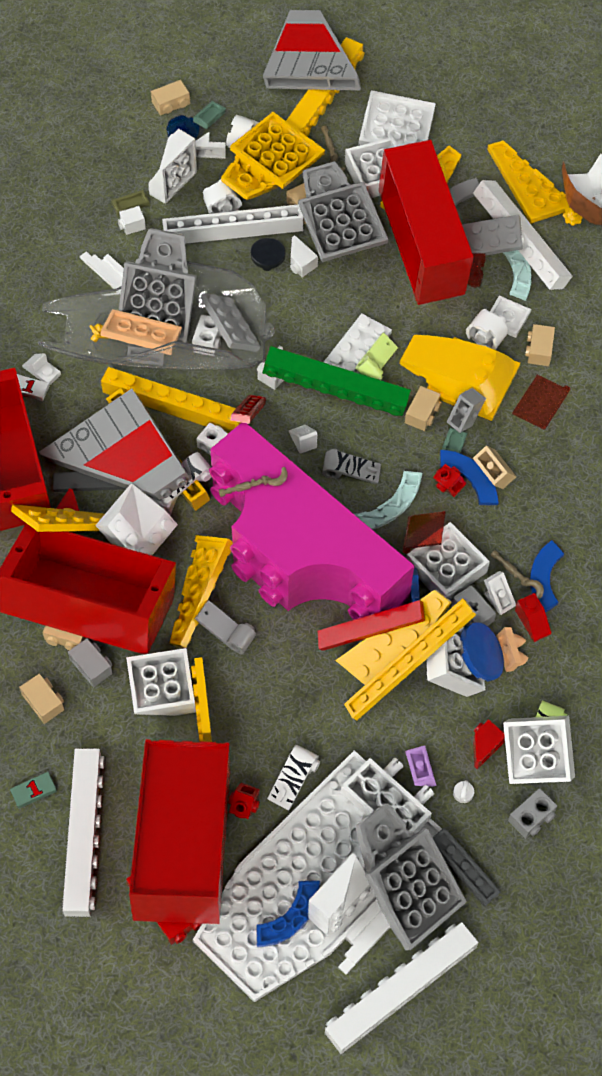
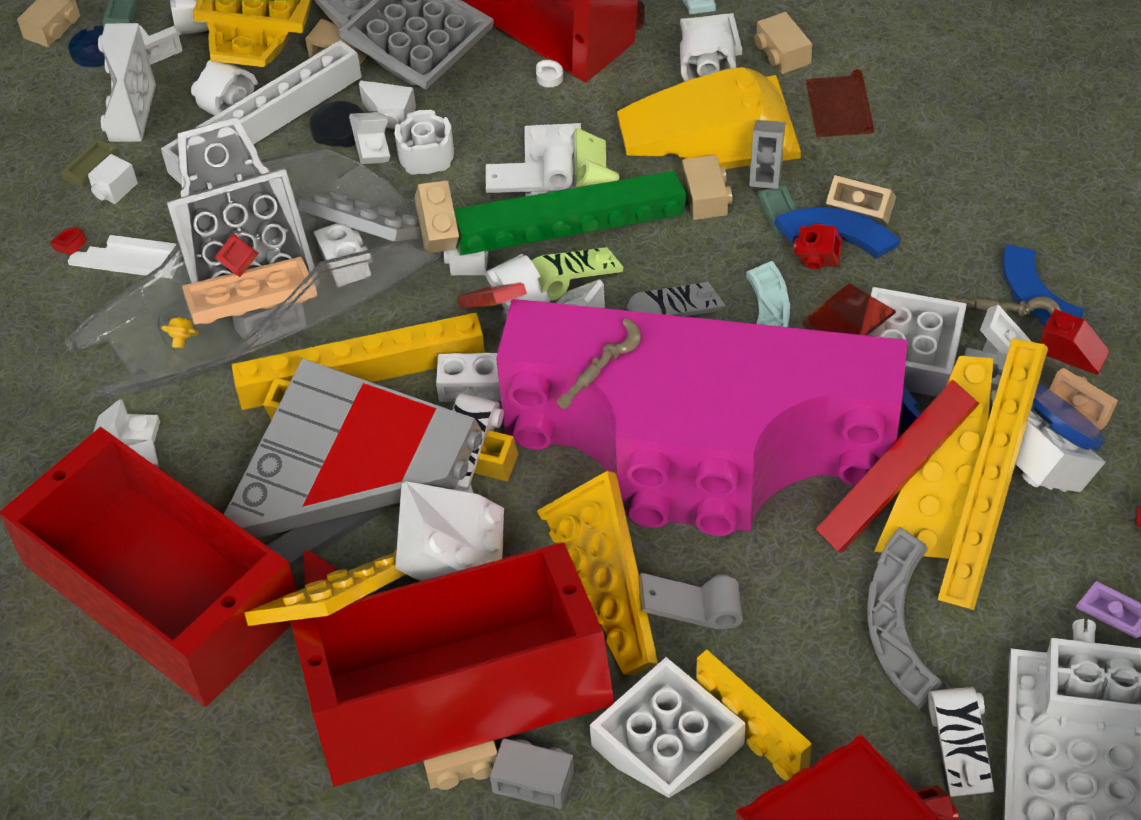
camera: 30 degrees left, 10 degrees down
(88, 244) = (69, 241): none -> red tile
(146, 309) = (236, 255): none -> red tile
(260, 345) = (436, 216): none -> tan brick
(276, 272) = (370, 137): none -> white slope
(277, 410) = (518, 270): none -> white brick
(299, 293) = (424, 142): none -> white brick
(305, 410) = (559, 268): none -> yellowish green door
(311, 697) = (887, 620): none -> light grey tile
(343, 350) = (550, 175): none -> white door
(401, 288) = (549, 73): none -> white tile

